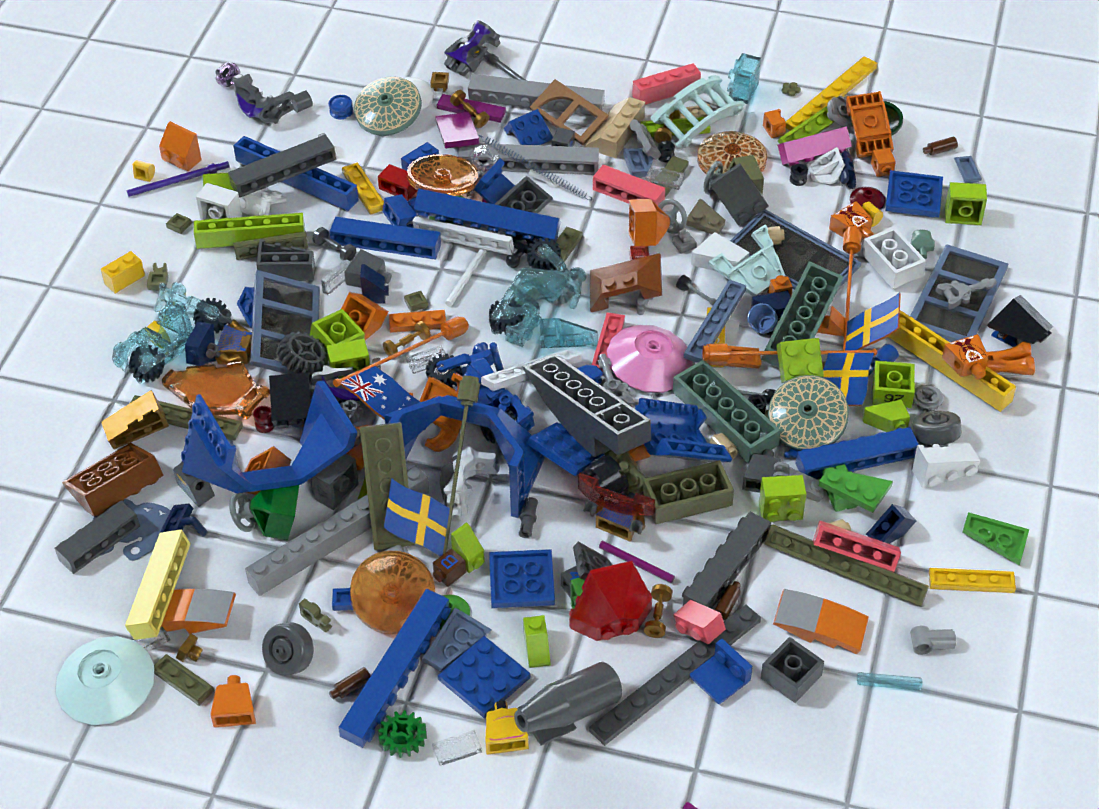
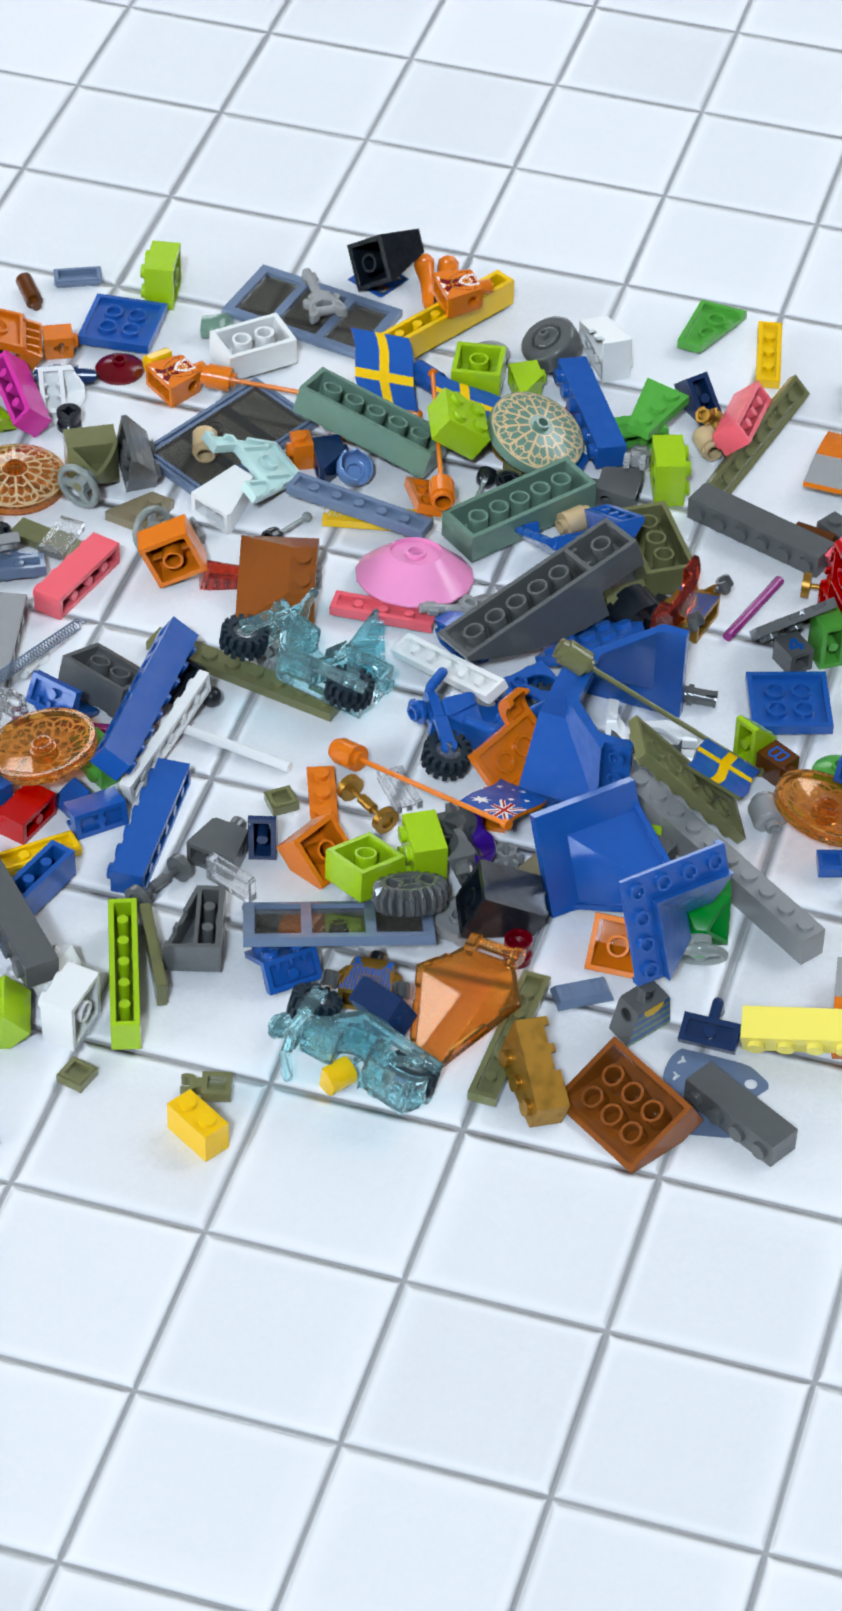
camera: 90 degrees left, 5 degrees down
(852, 518) = (708, 416): none -> pearl gold bar

